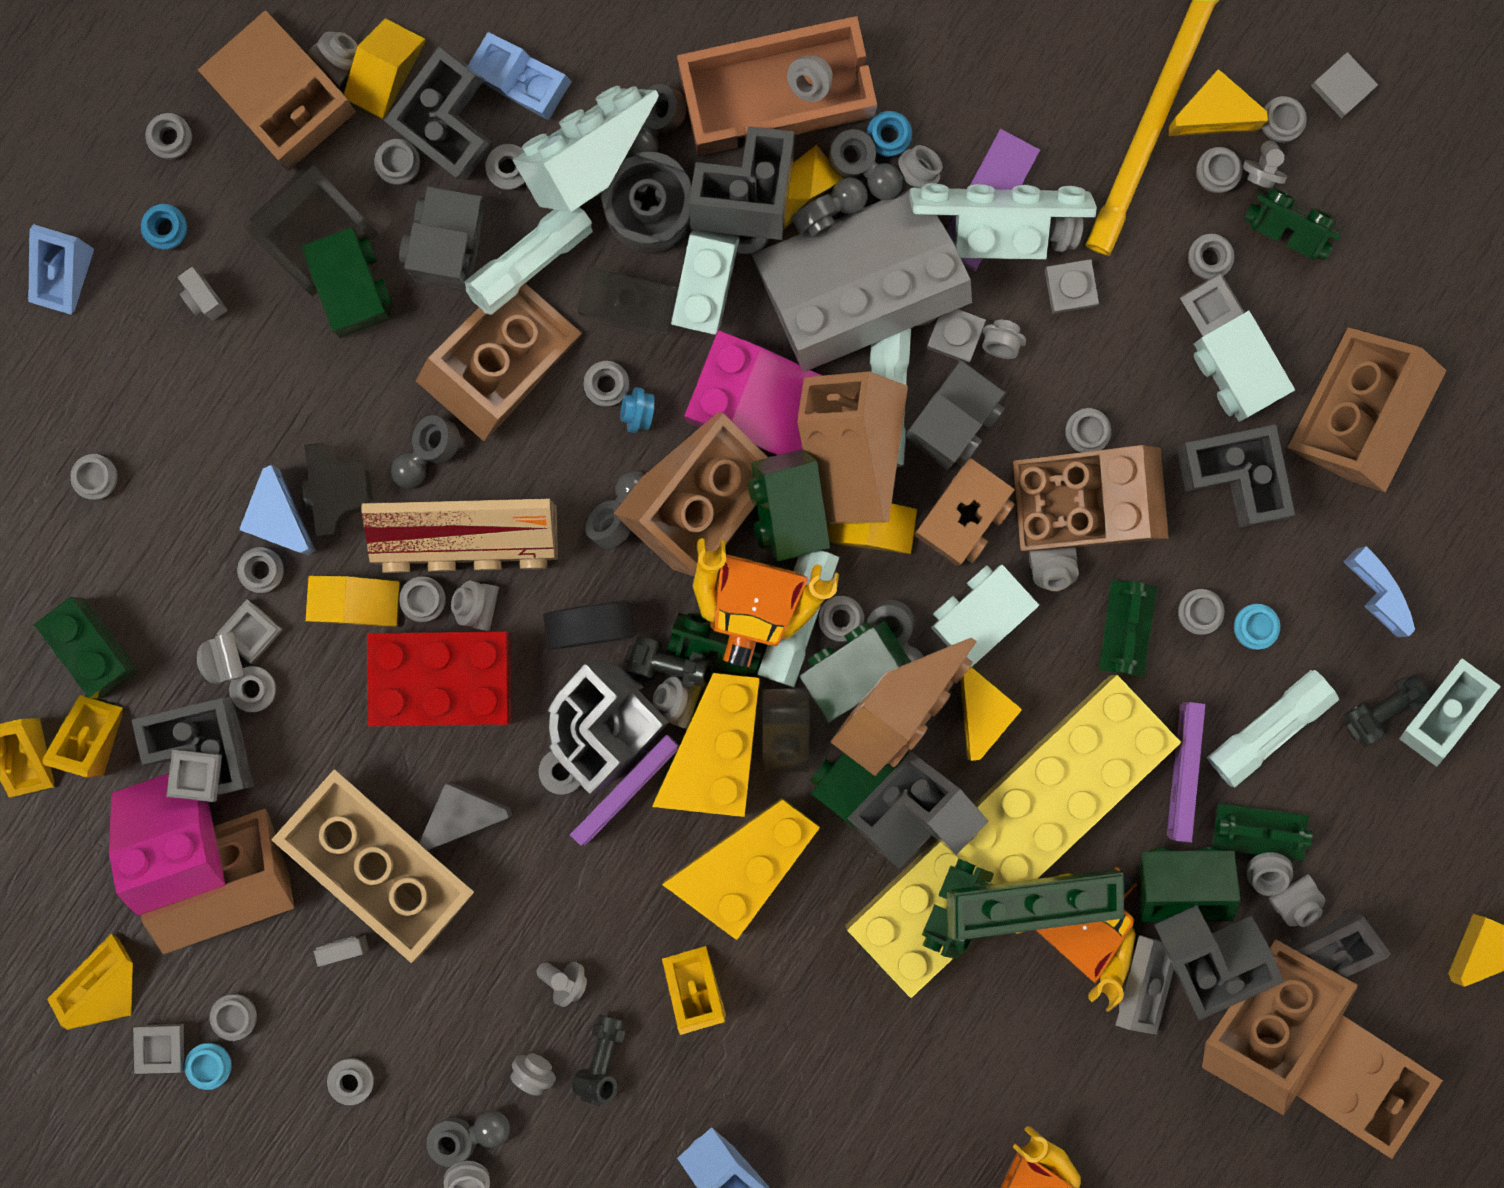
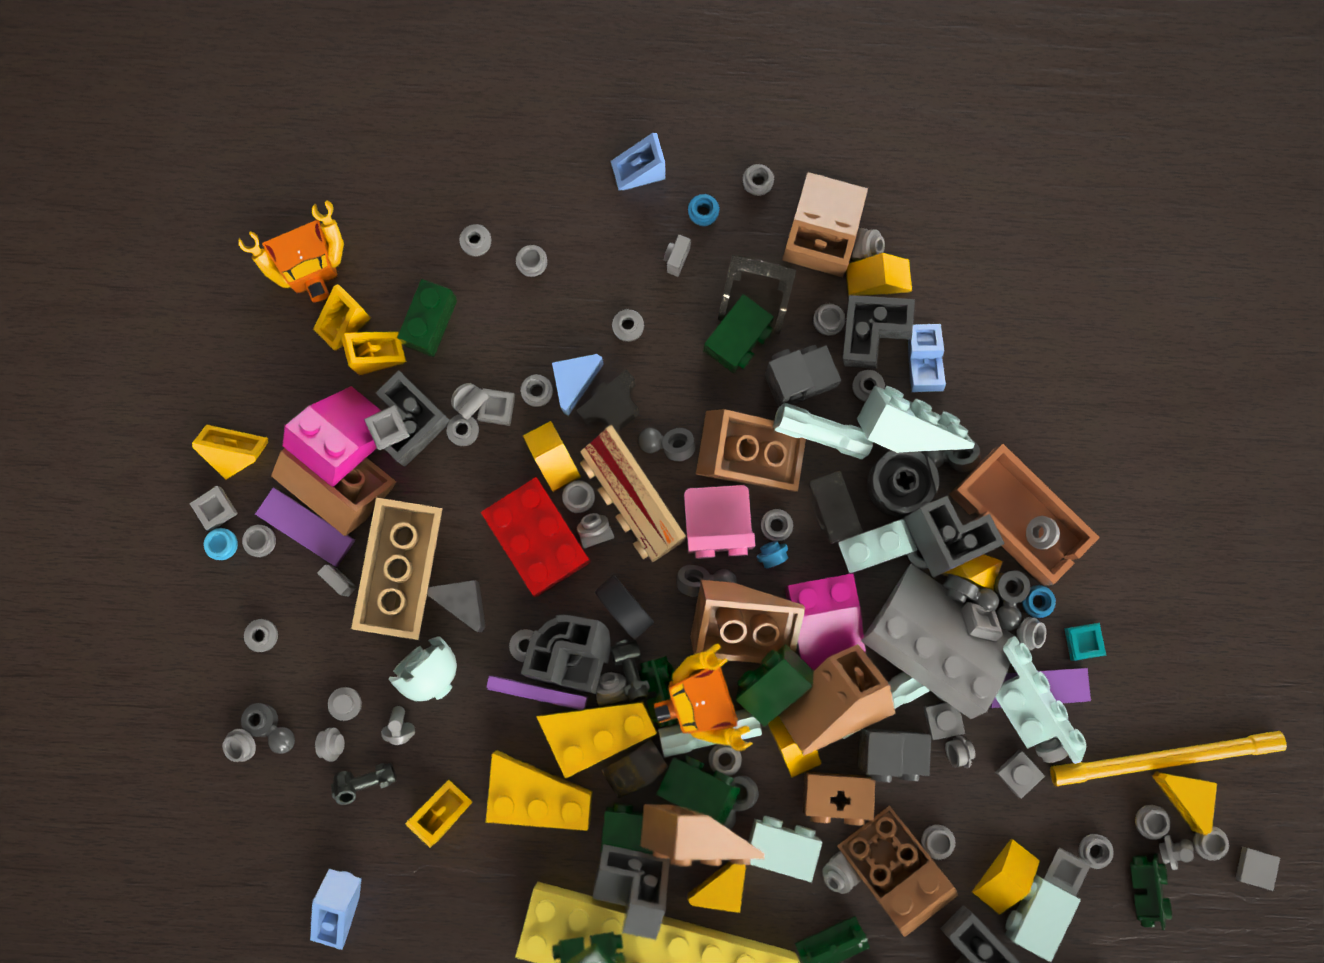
camera: 60 degrees right, 5 degrees down
(37, 530) = (479, 248): none -> light grey plate
(251, 951) = (304, 527): none -> medium lavender tile
(259, 419) = (628, 334): none -> light grey plate
(495, 1028) = (344, 703): none -> light grey plate
(518, 907) = (426, 672): none -> light aqua cylinder
(557, 449) = (718, 521): none -> bright pink bracket
(870, 217) = (981, 622): none -> light grey tile
(969, 110) = (1085, 641): none -> teal tile
(1177, 377) = (1007, 878): none -> yellow slope

